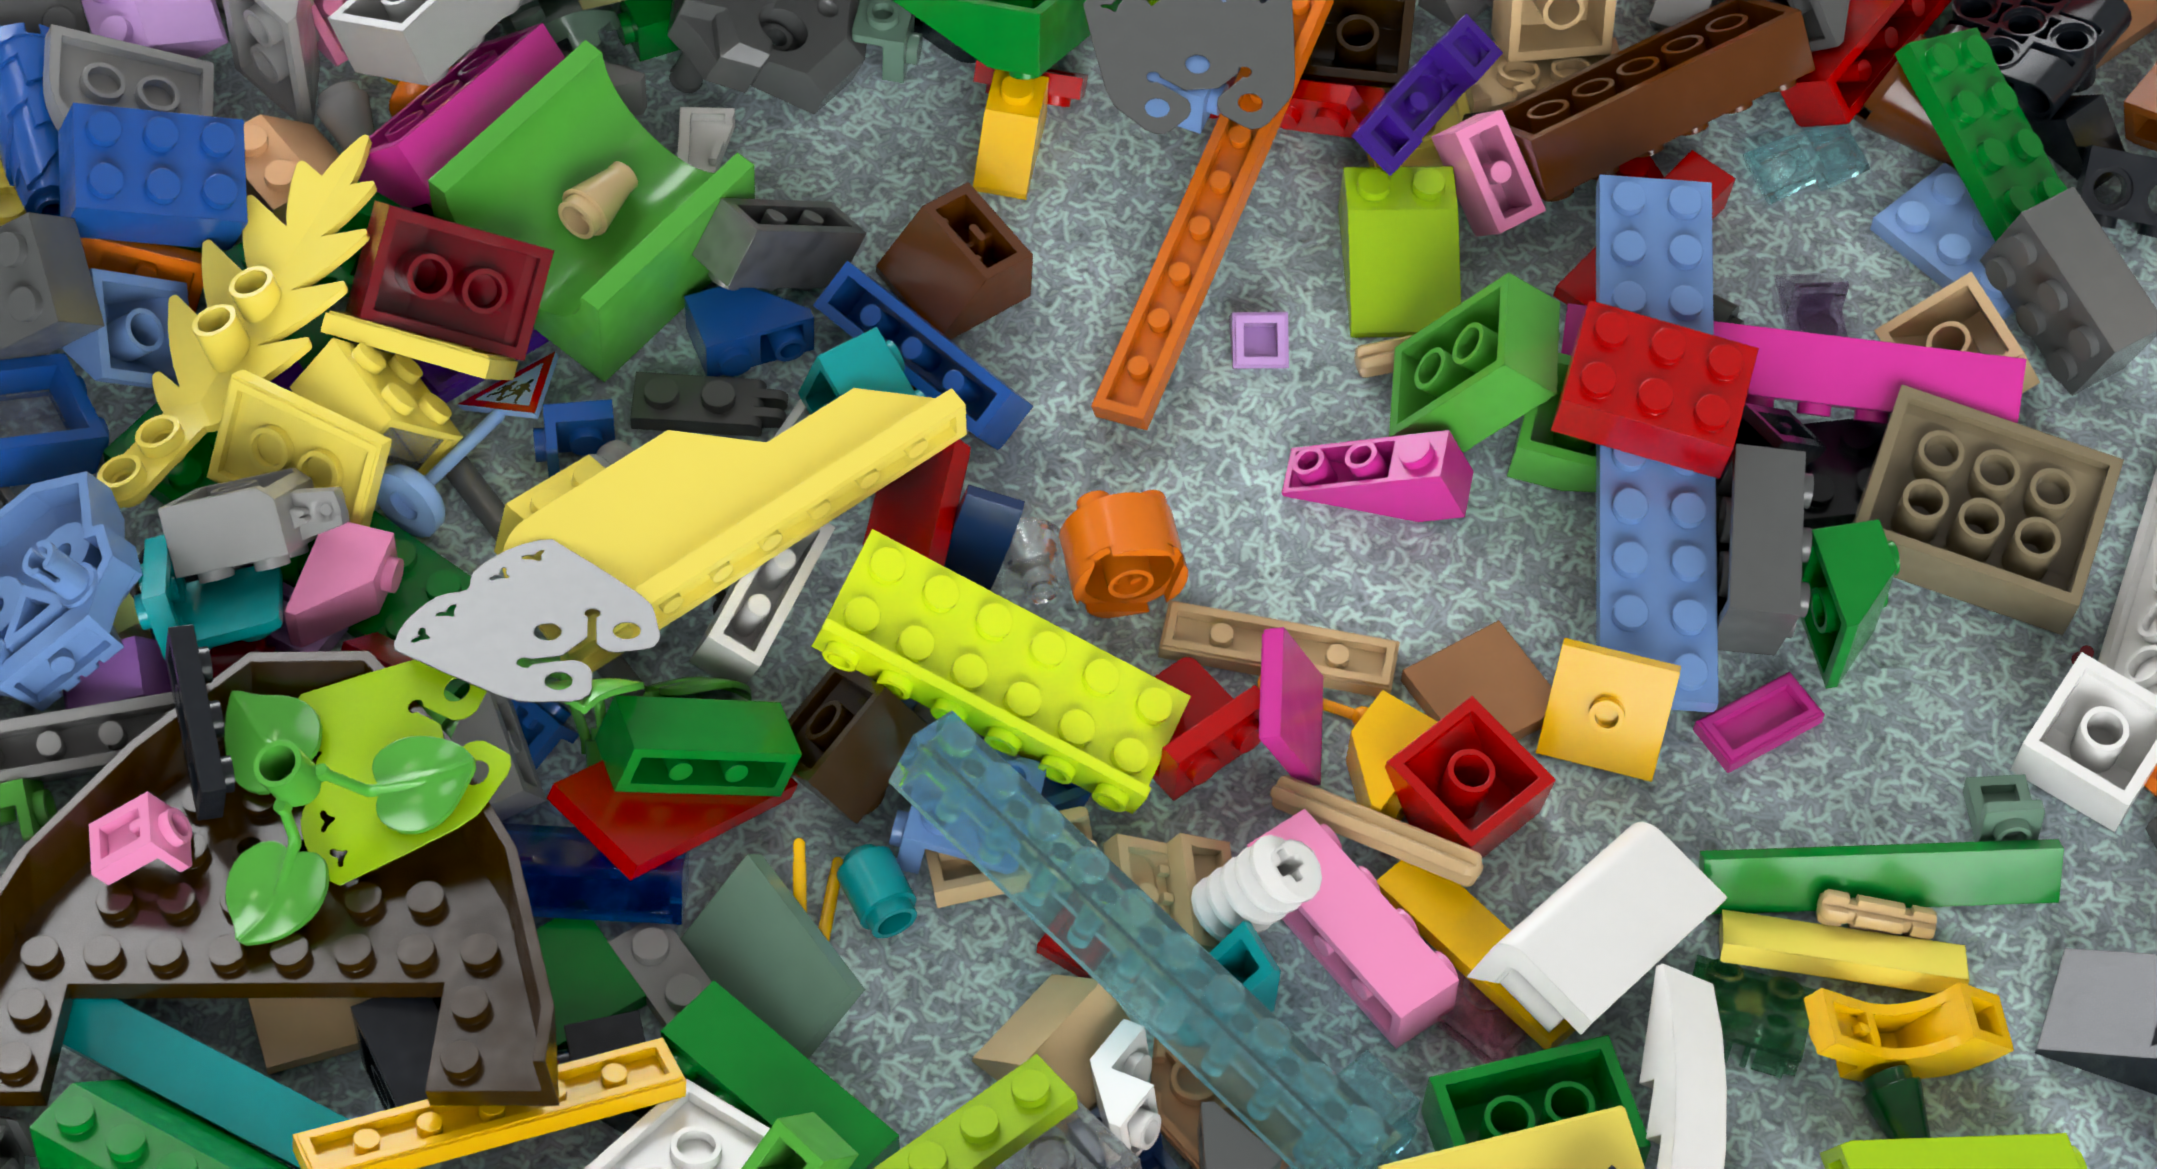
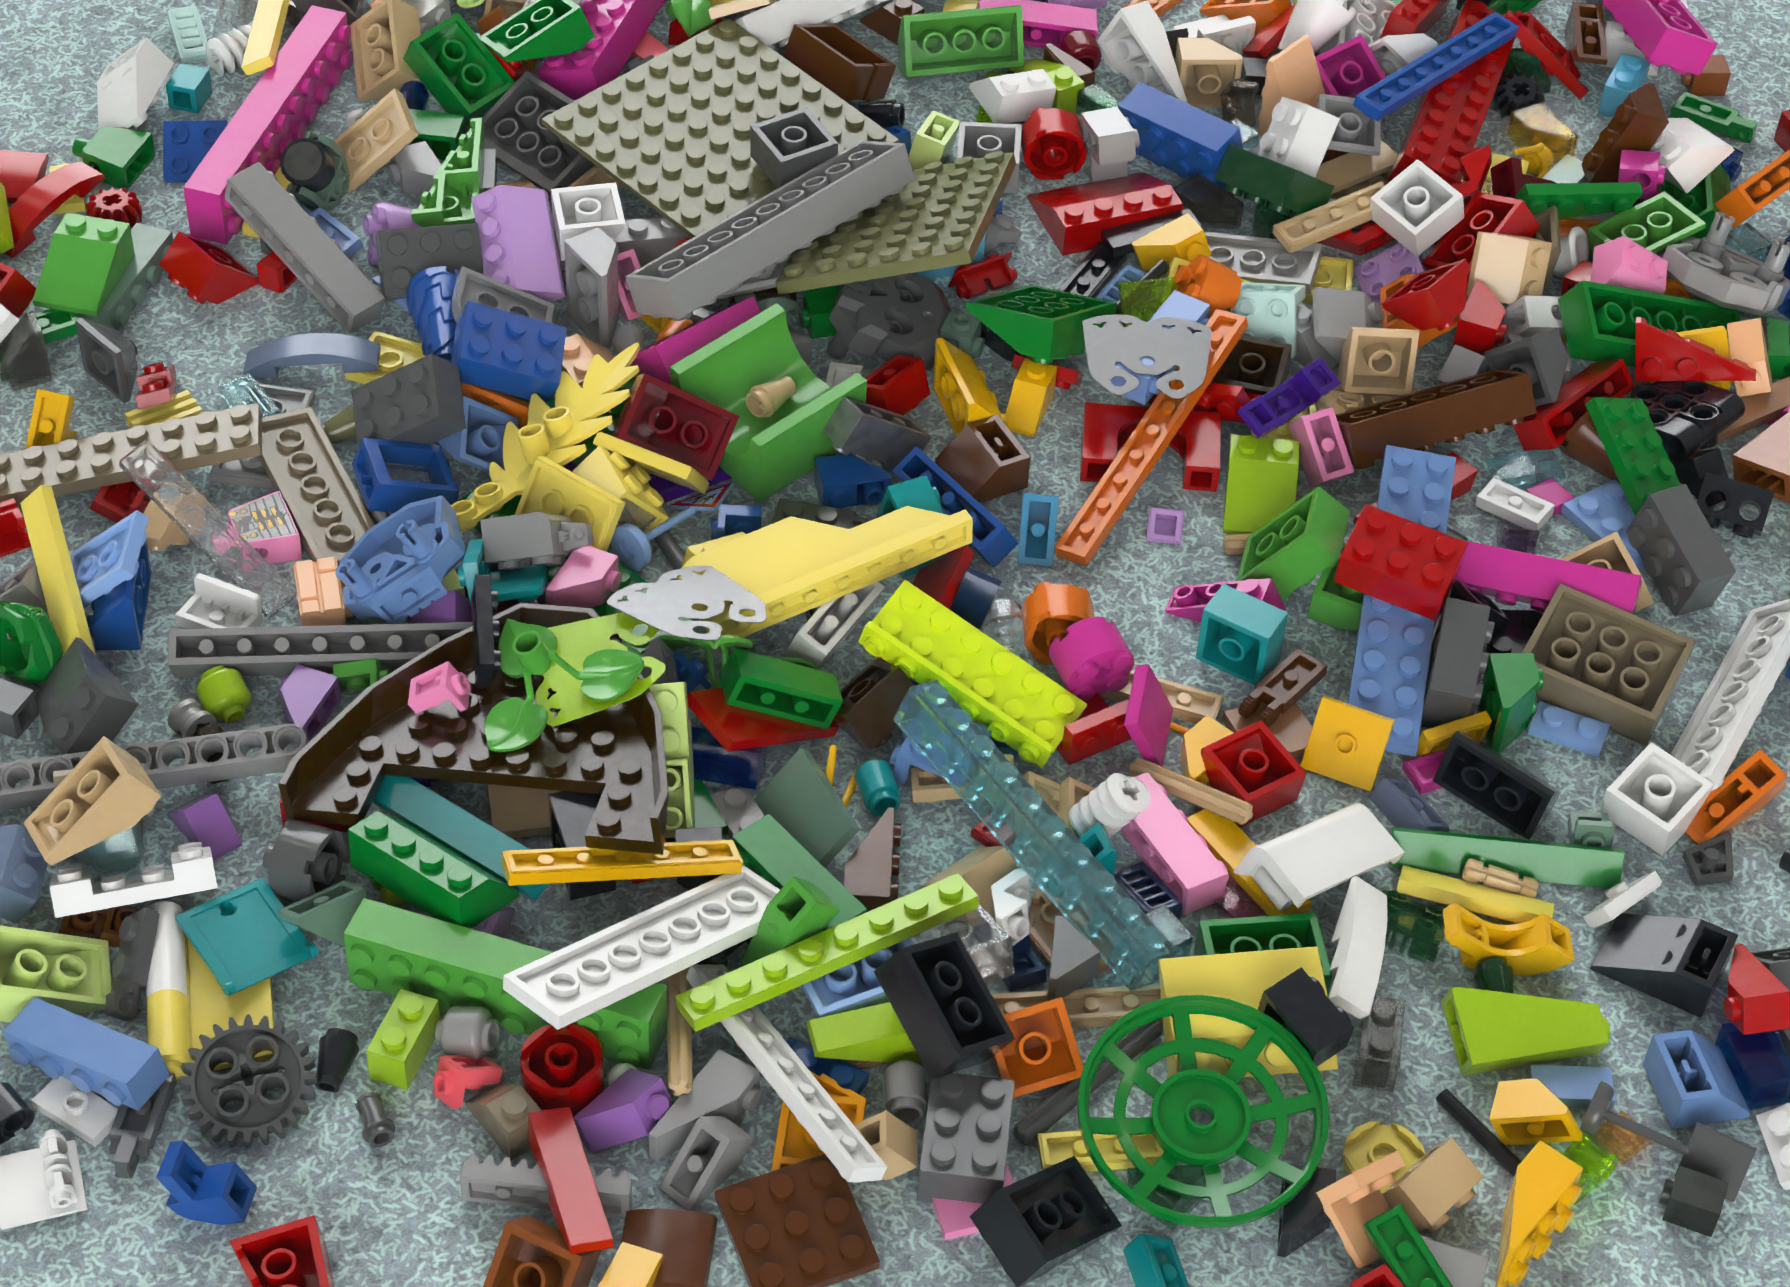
camera: 10 degrees right, 10 degrees down
(531, 822) = (678, 754): none -> yellowish green slope
(795, 144) = (898, 384): none -> red brick
(889, 1048) = (873, 863): none -> slope
(904, 138) = (962, 387): none -> yellow slope
(1060, 375) = (1037, 529): none -> dark azure slope
(1148, 169) = (1110, 425): none -> red arch
(1187, 616) = (1092, 658): none -> dark pink brick
(1311, 1032) = (1154, 884): none -> dark blue slope
(1414, 535) = (1241, 635): none -> teal brick
(1493, 616) = (1283, 686): none -> reddish brown hinge
(1713, 805) = (1405, 806): none -> sand blue slope
(1770, 663) = (1440, 736): none -> yellow tile
(1799, 231) = (1514, 505): none -> white plate
(1848, 207) = (1552, 492): none -> dark pink tile
(1849, 751) = (1495, 785): none -> black slope
(1941, 624) = (1569, 729): none -> light blue plate
(2069, 925) = (1622, 898): none -> white plate

